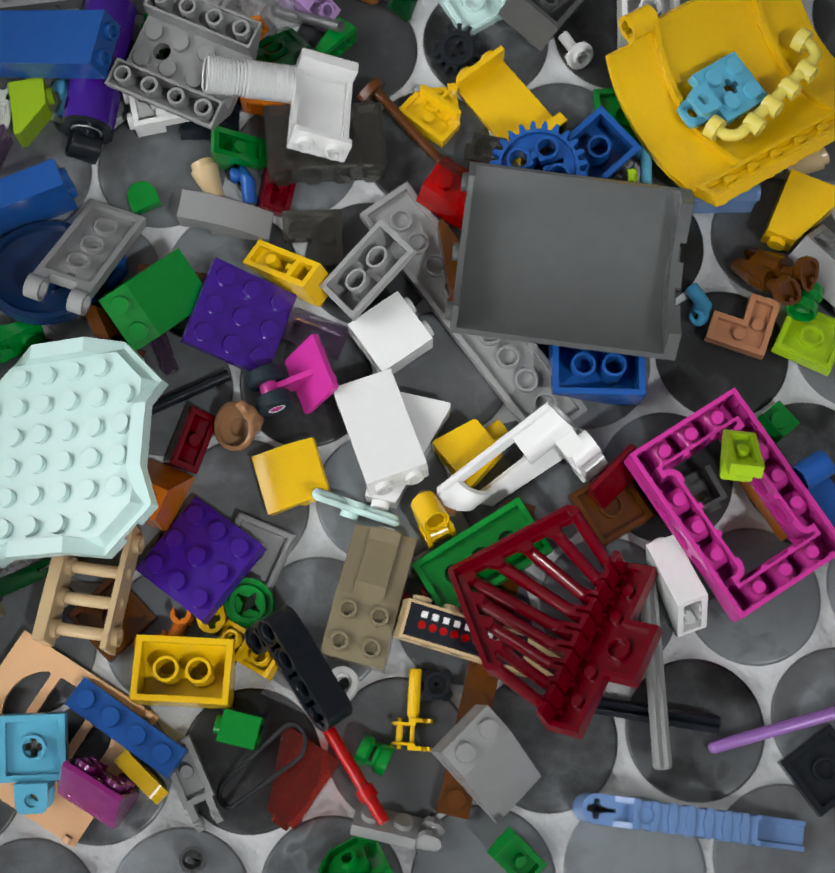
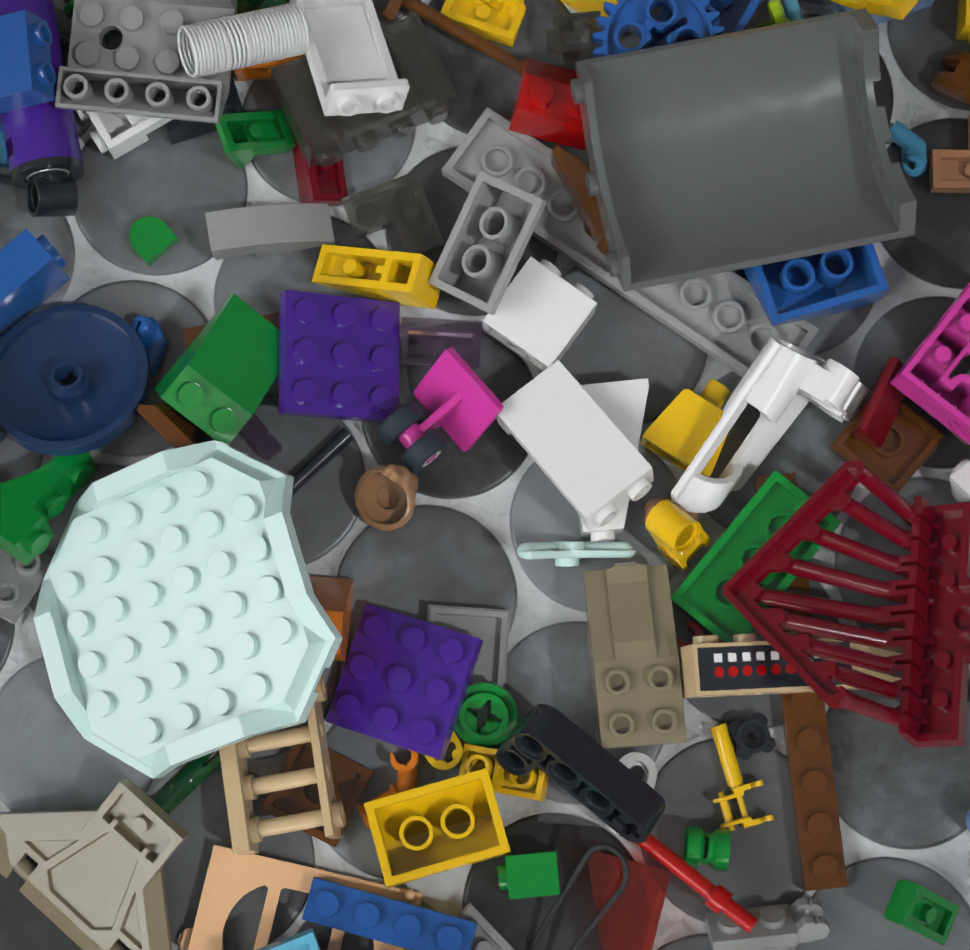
camera: 20 degrees left, 5 degrees up
(86, 255) = (115, 339): light grey hinge -> none
(190, 440) = (331, 533): dark red slope -> none
(207, 176) = (227, 184): tan cone -> none
(247, 181) = (280, 173): blue arm -> none
(290, 475) = (476, 537): yellow slope -> none
(487, 761) = (847, 808): light grey slope -> none

